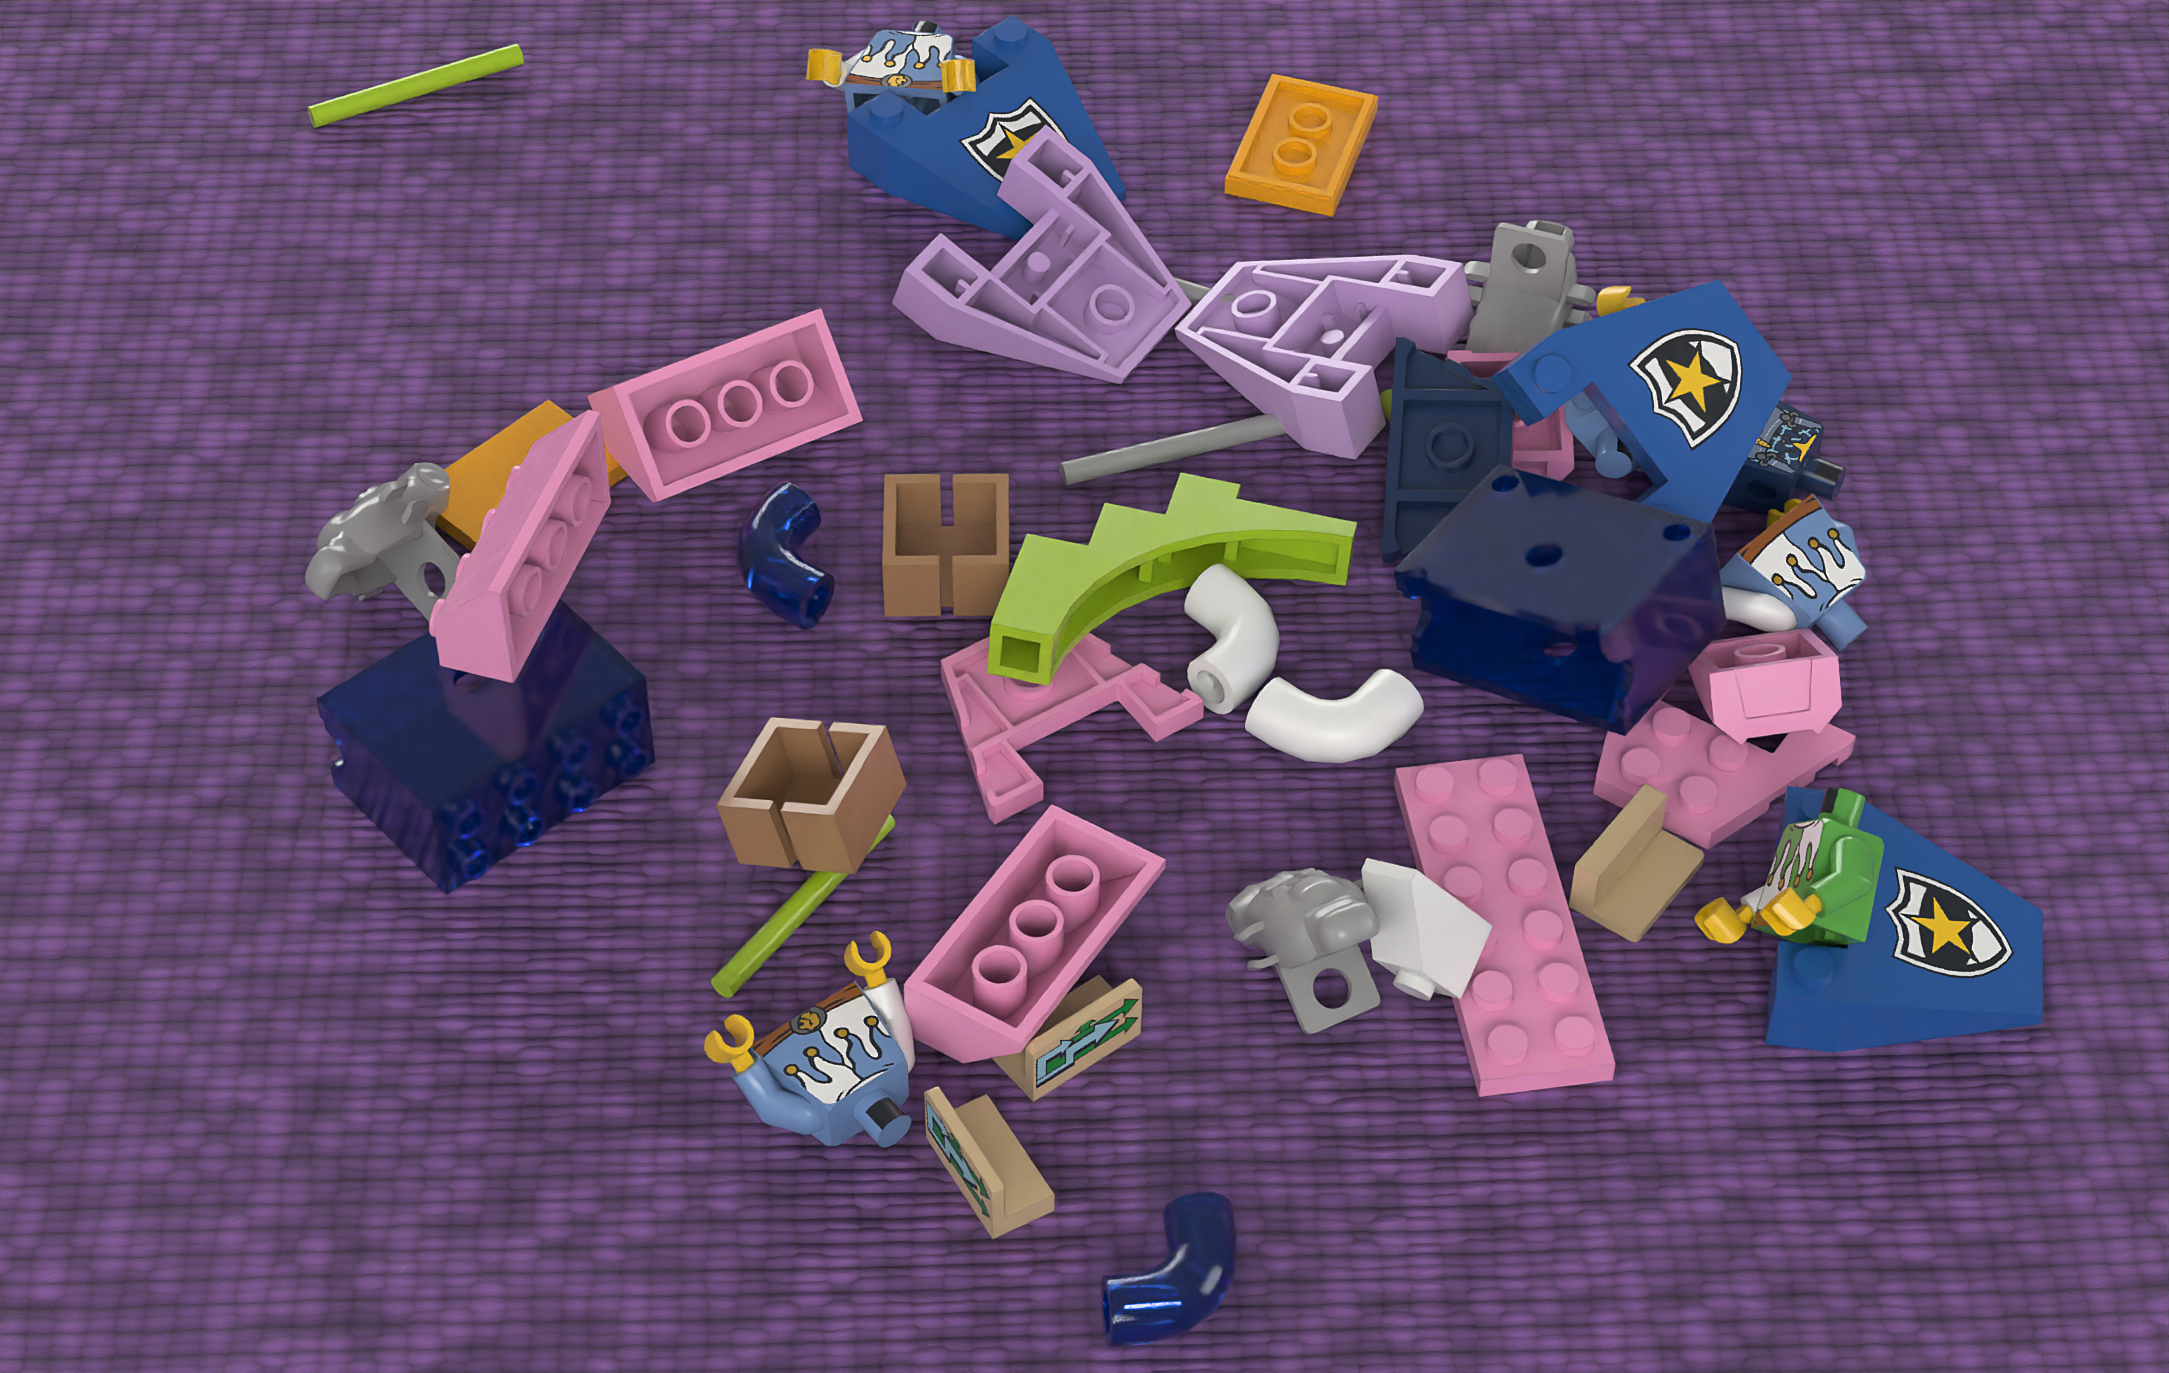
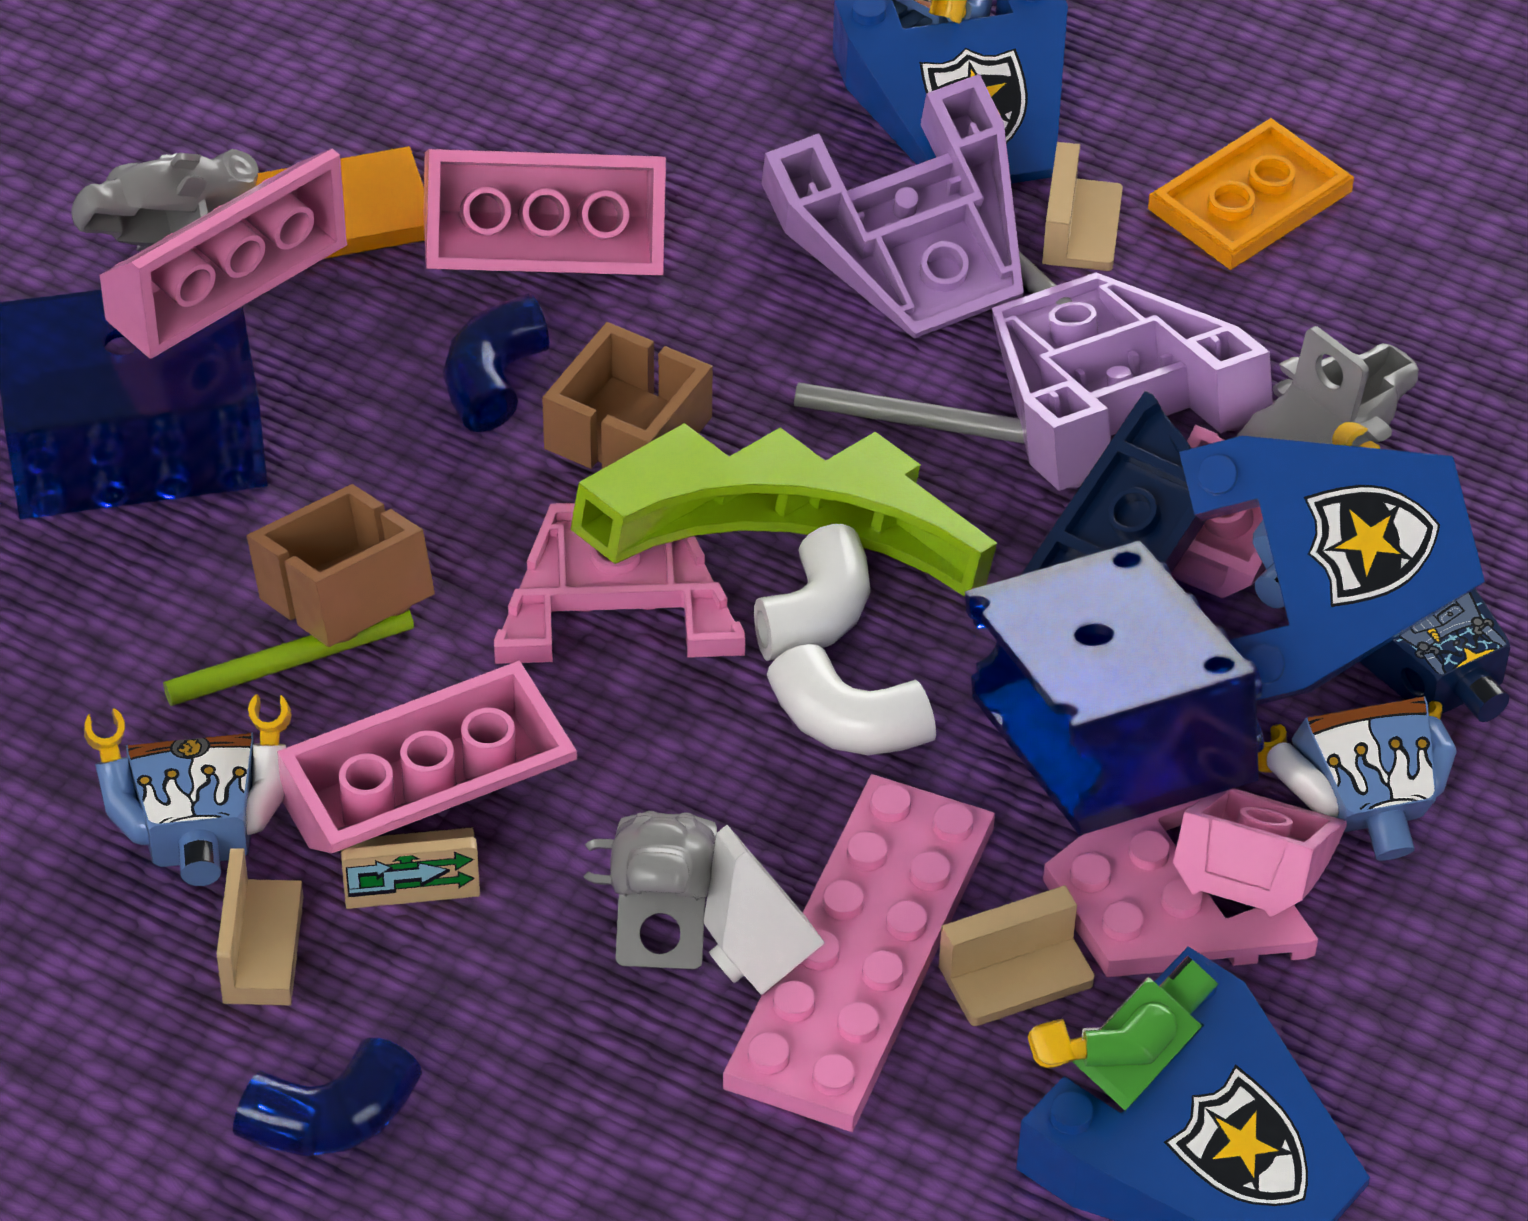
camera: 30 degrees right, 0 degrees up
(1178, 219) = (1080, 216): none -> tan panel

